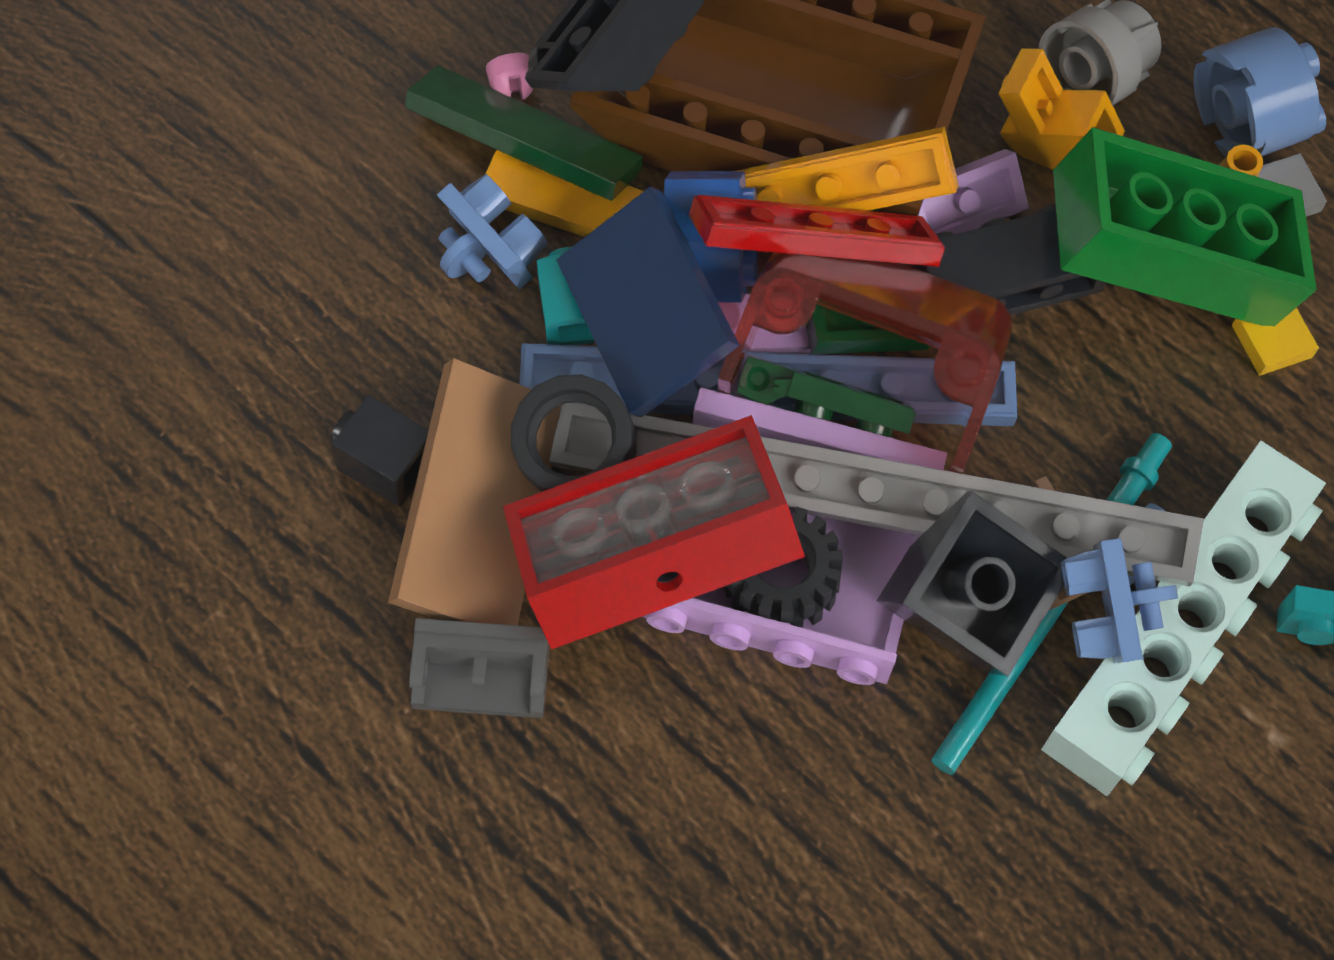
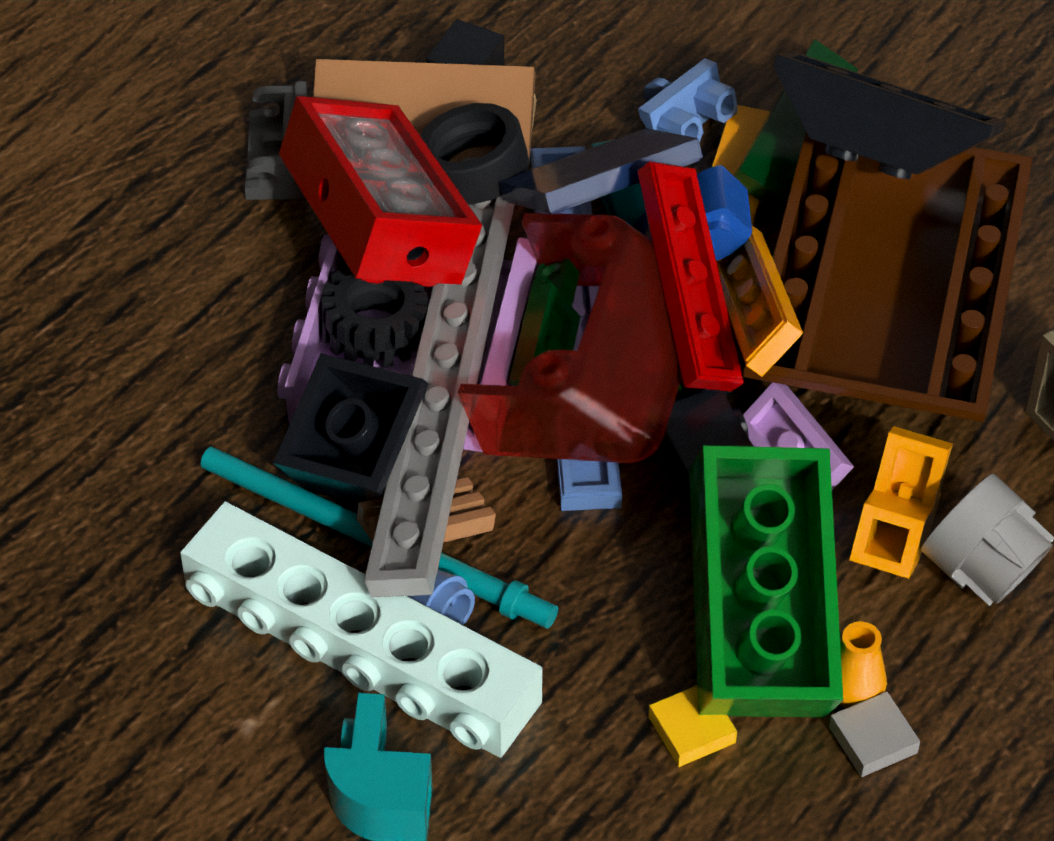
camera: 90 degrees right, 15 degrees down
(1106, 571) = (334, 510): medium blue hips -> none
(1260, 91) = (966, 673): medium blue brick -> none

